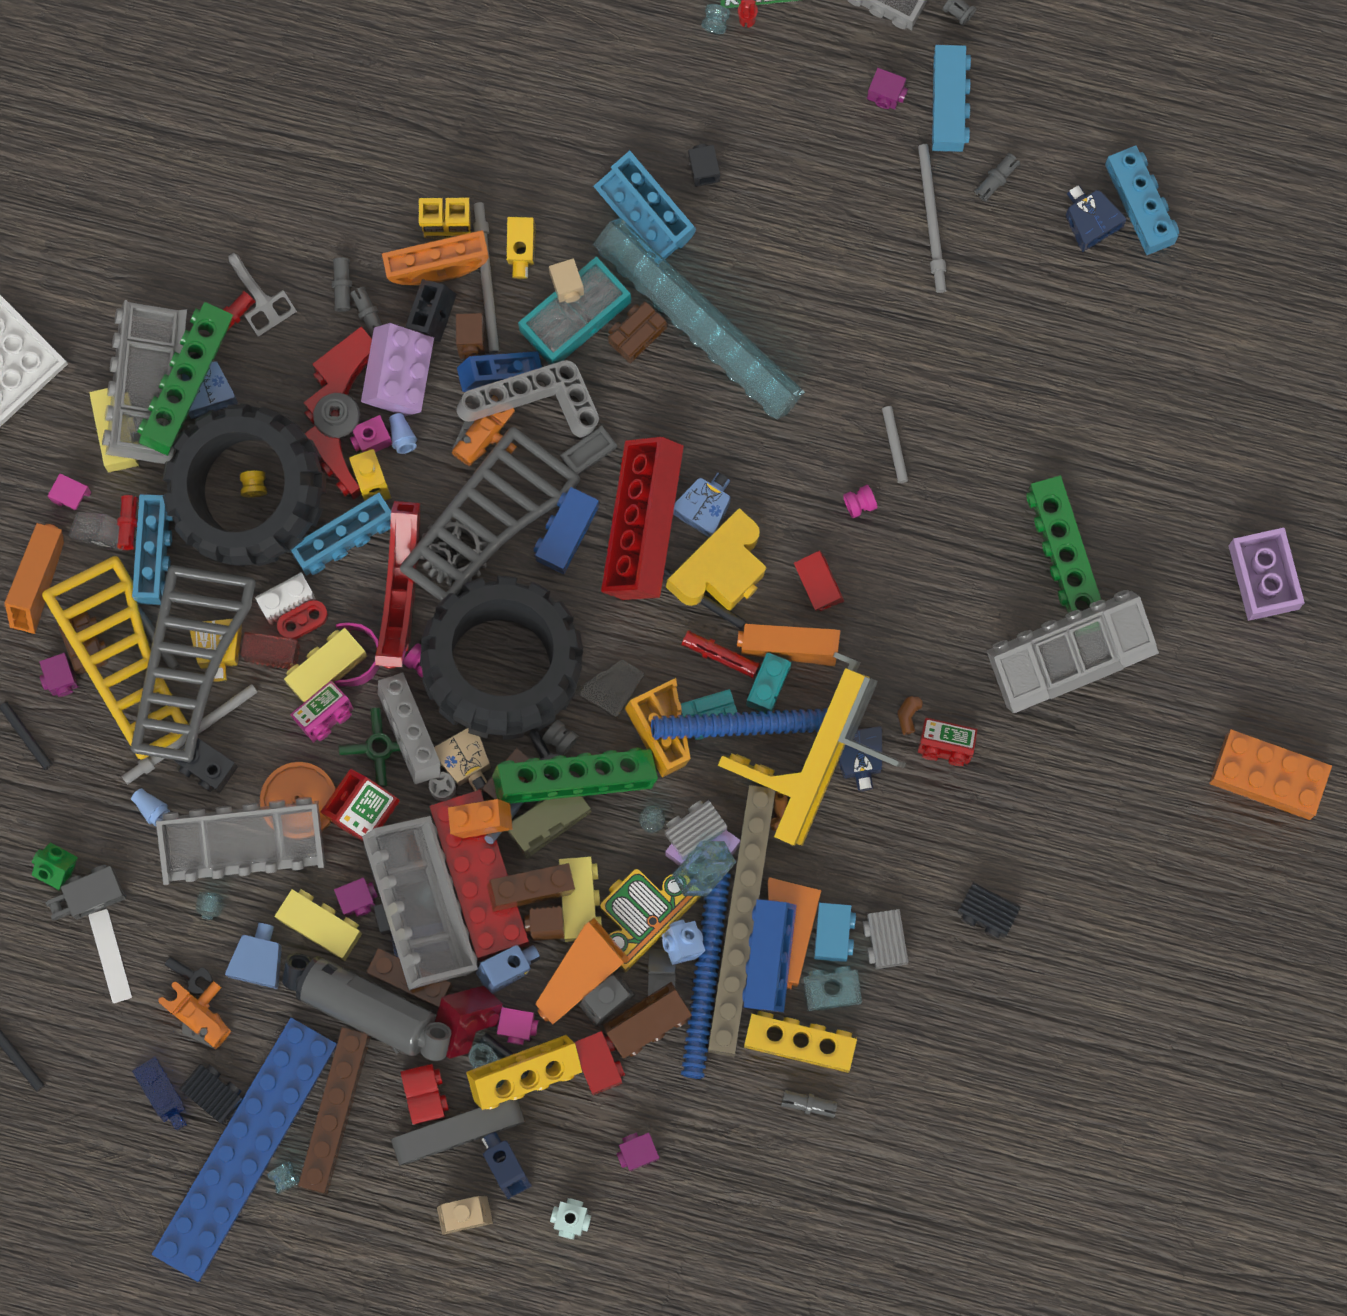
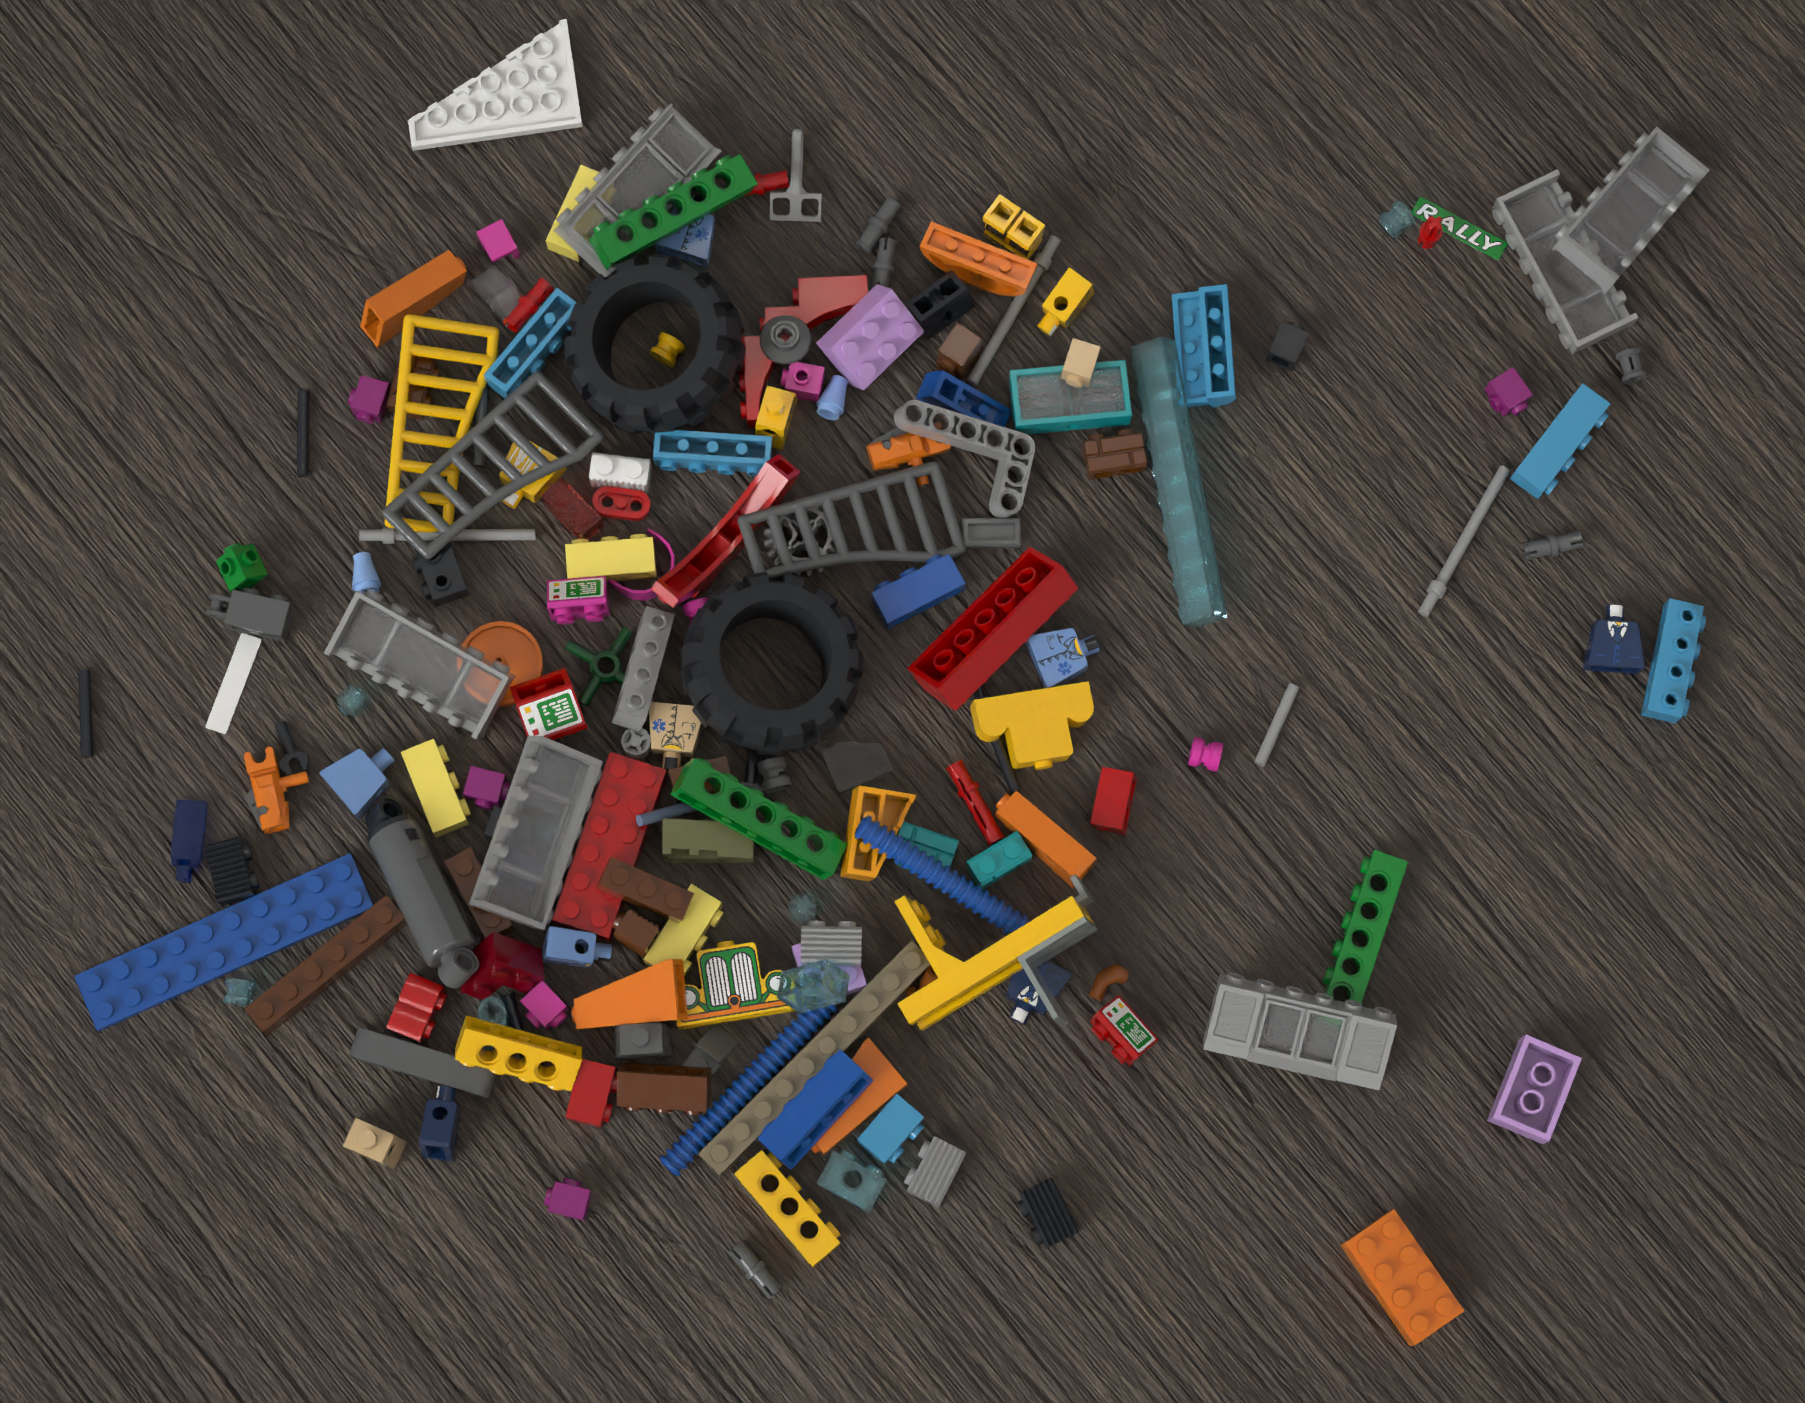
camera: 30 degrees right, 0 degrees up
(480, 818) = (643, 795): orange brick -> none
(580, 1224) = (474, 1222): light aqua brick -> none
(683, 942) = (747, 1039): light blue brick -> none

